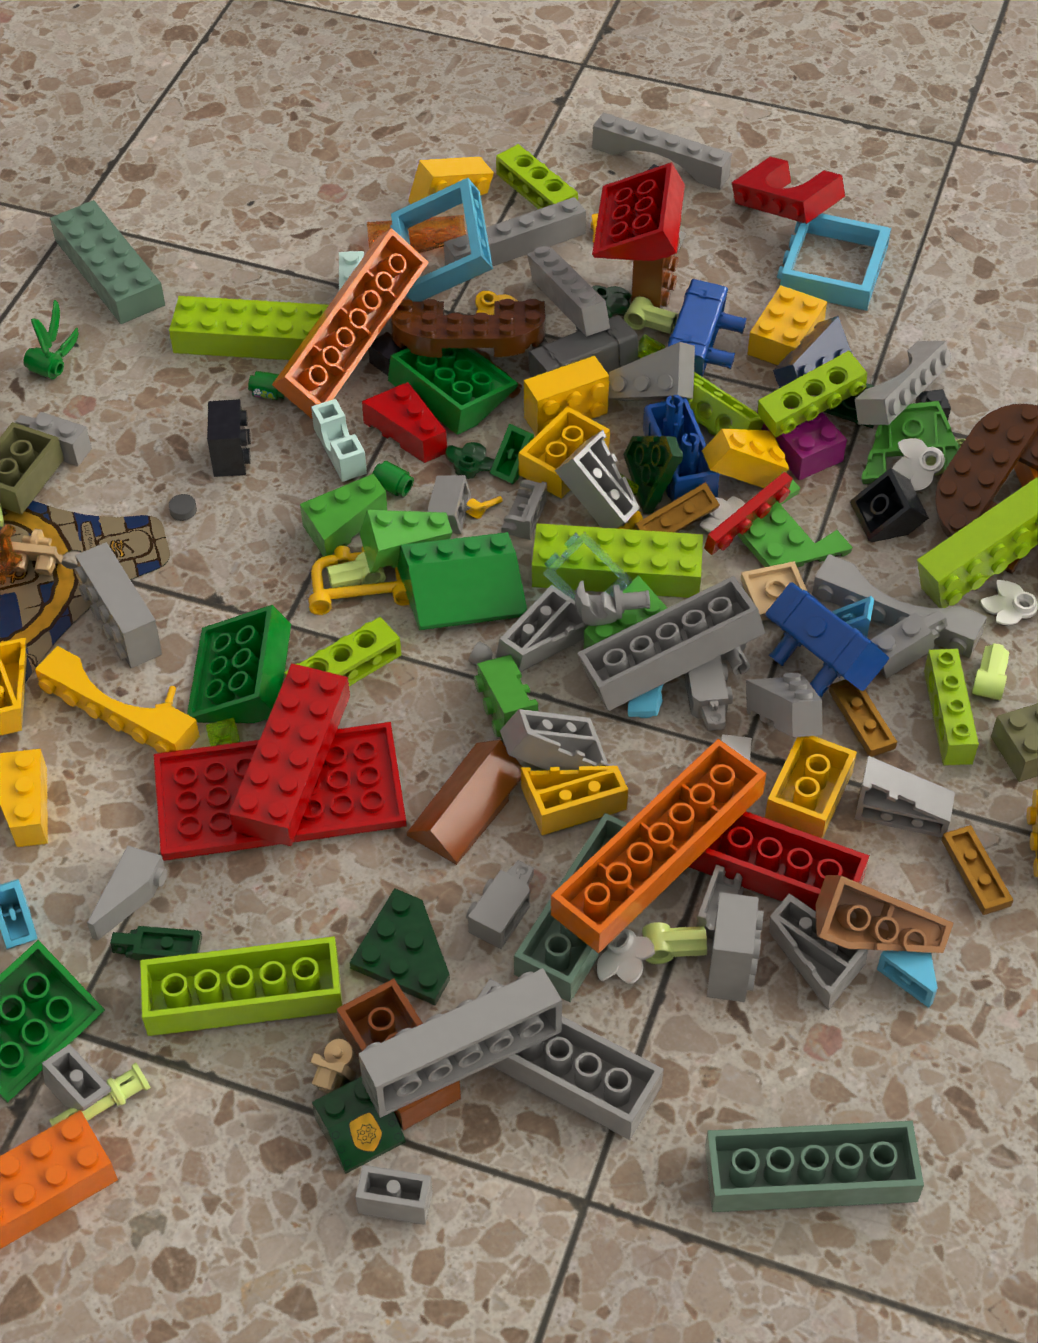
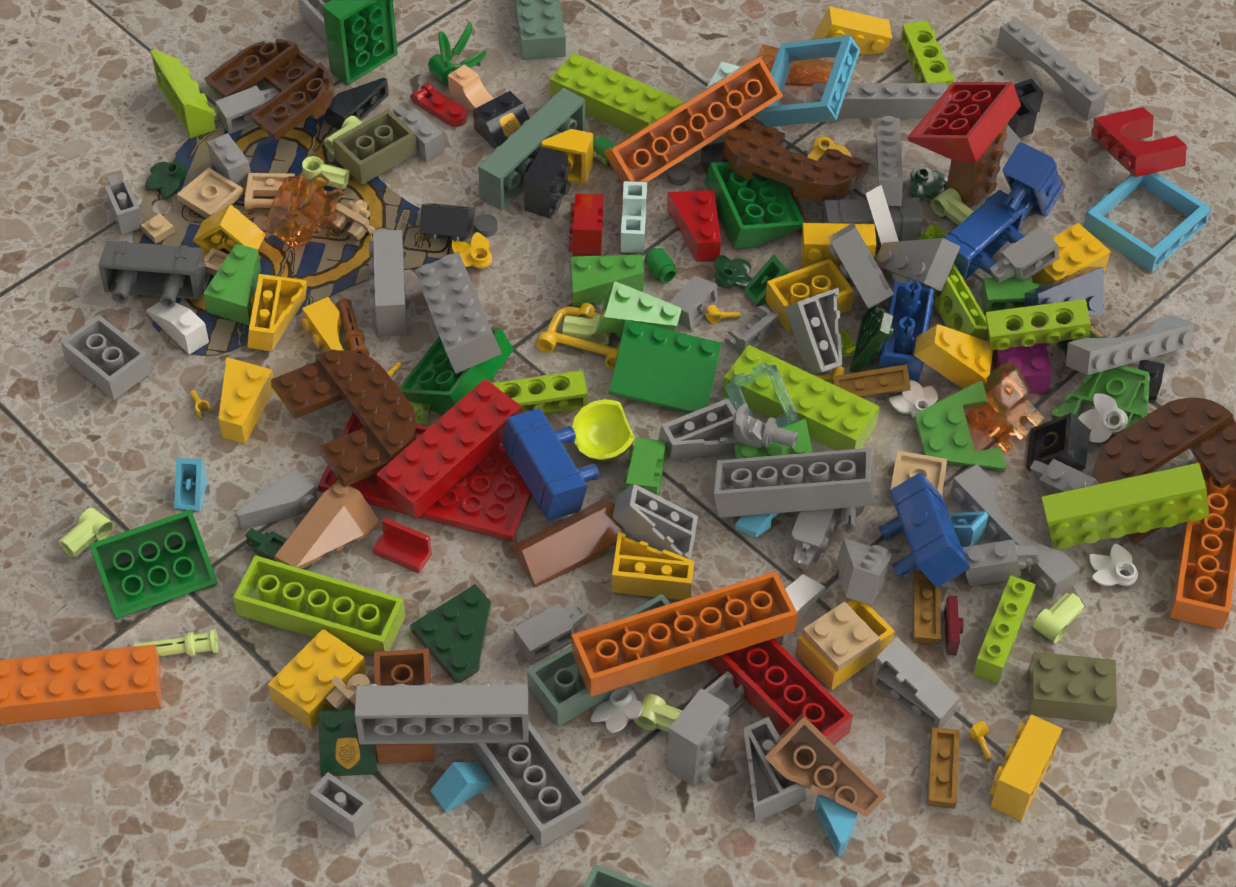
camera: 25 degrees right, 0 degrees up
(59, 401) = (439, 105): none -> red plate
(73, 1079) = (163, 620): light grey slope -> none
(83, 374) = (467, 88): none -> light nougat arch
(107, 679) = (353, 338): none -> dark orange pin
(140, 517) = (446, 220): none -> black slope
(142, 394) = (499, 118): none -> black slope
(146, 719) = (370, 394): none -> reddish brown plate
(184, 424) = (504, 170): none -> sand green brick
(186, 541) = (474, 253): none -> yellow plate
(202, 889) = (333, 521): none -> medium nougat wedge
(215, 606) = (457, 312): none -> light grey brick
(242, 386) = (579, 148): none -> yellow slope
(279, 1068) = (307, 678): none -> yellow brick
(292, 880) = (403, 546): none -> red panel
(294, 467) = (587, 225): none -> red wedge
(357, 382) = (679, 174): none -> dark grey tile
(403, 727) = (546, 464): none -> blue piece
(439, 670) = (602, 430): none -> neon yellow cylinder
(480, 653) = (647, 431): light grey hinge -> none
(504, 1113) = (460, 784): none -> medium azure slope
(598, 343) = (881, 215): none -> white sticker
(604, 401) = (859, 265): none -> light grey wedge
(721, 255) = (1032, 180): none -> blue piece
(743, 518) = (921, 405): red plate -> none
(751, 379) = (1006, 294): none -> bright green hinge
(757, 333) = (1026, 256): none -> light grey hinge
(810, 779) = (841, 636): none -> tan plate
(823, 477) = (1006, 407): none -> clear orange piece
(899, 723) = (953, 625): none -> dark red plate
(916, 537) = (1060, 477): none -> light grey hinge
(985, 821) = (977, 734): none -> yellow hand

